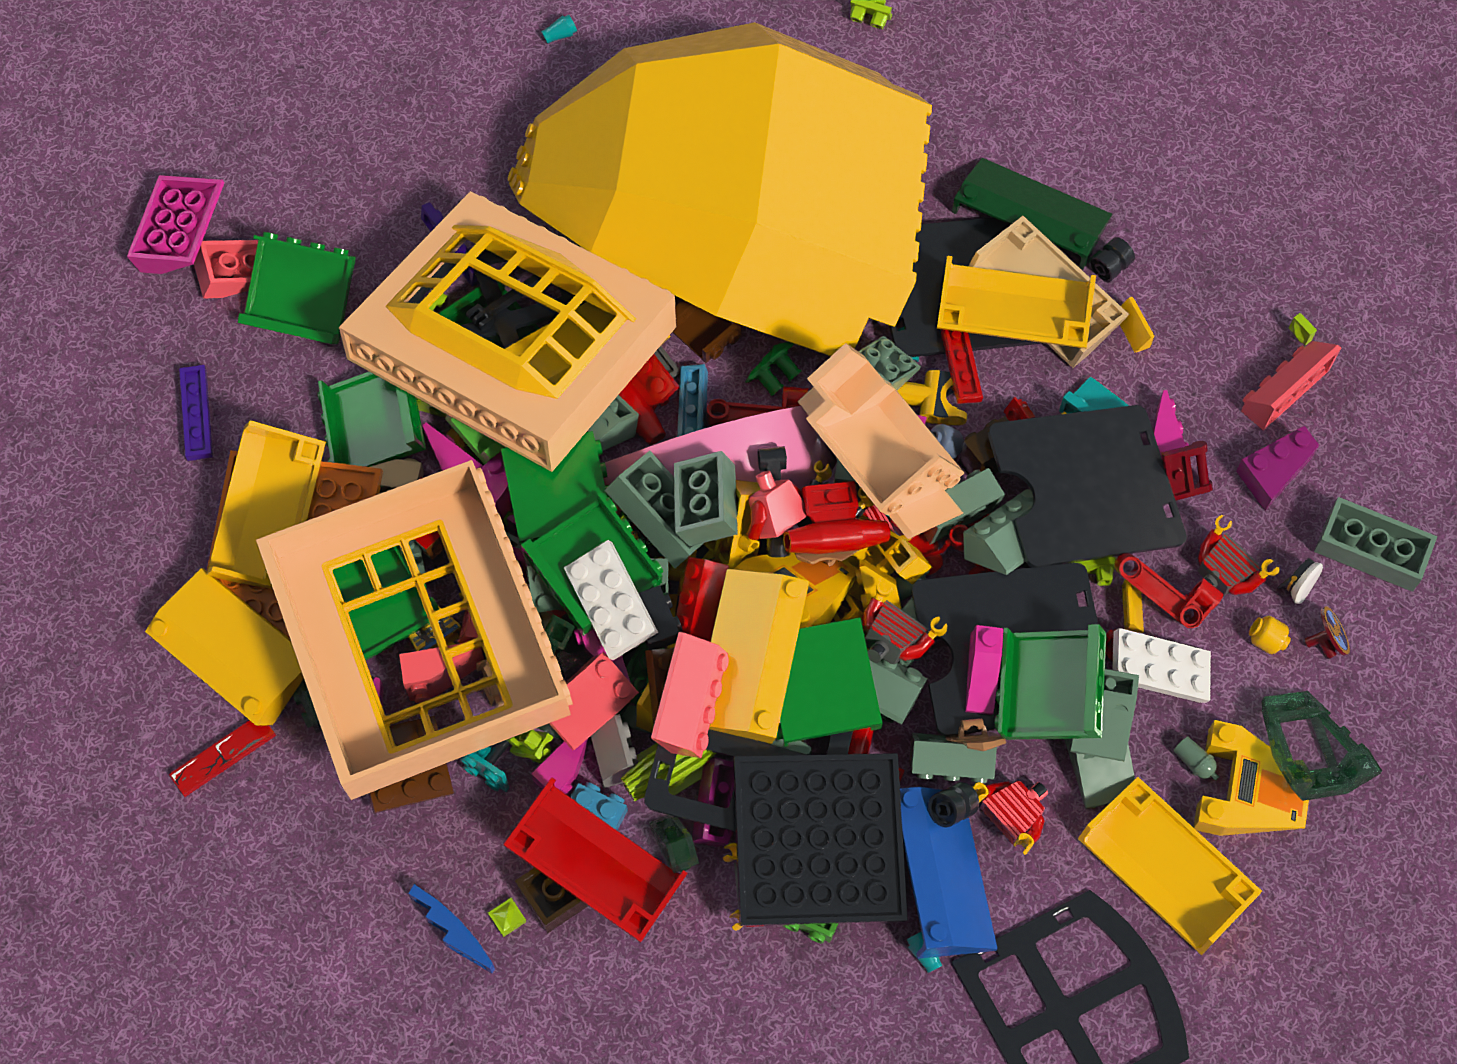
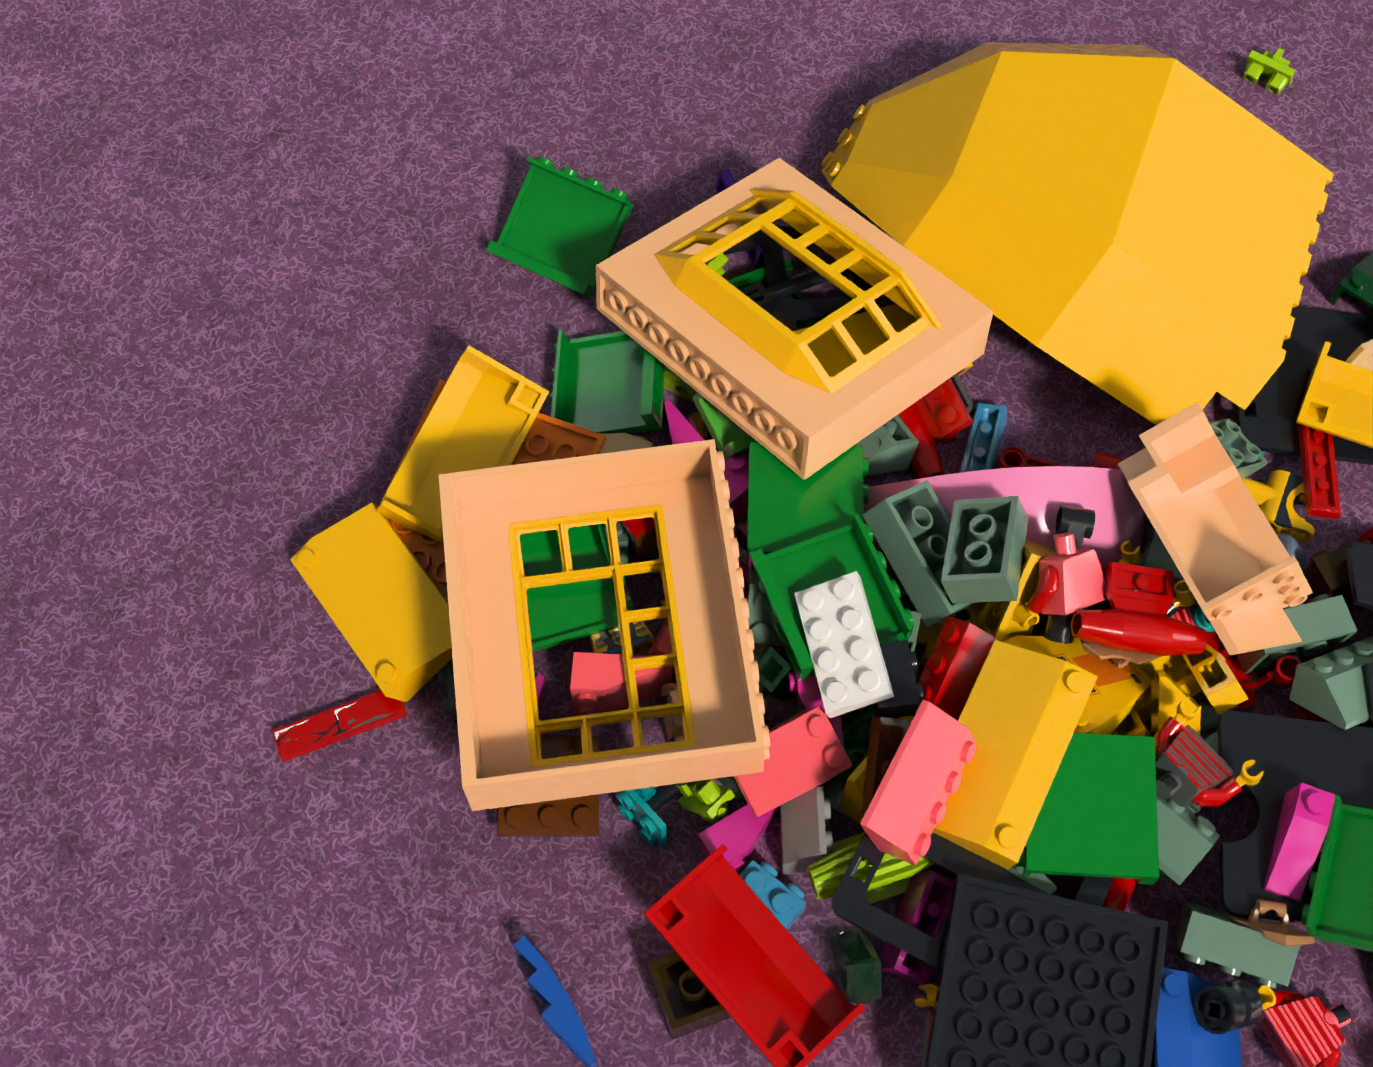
camera: 15 degrees right, 5 degrees down
(174, 223) = (444, 134): dark pink slope -> none
(196, 413) = (415, 337): dark purple plate -> none
(225, 267) = (486, 190): coral slope -> none
(507, 917) = (627, 1006): lime tile -> none
(560, 29) = (913, 26): teal cone -> none
(704, 331) = (1013, 368): reddish brown panel -> none
(778, 356) = (1093, 415): green connector -> none

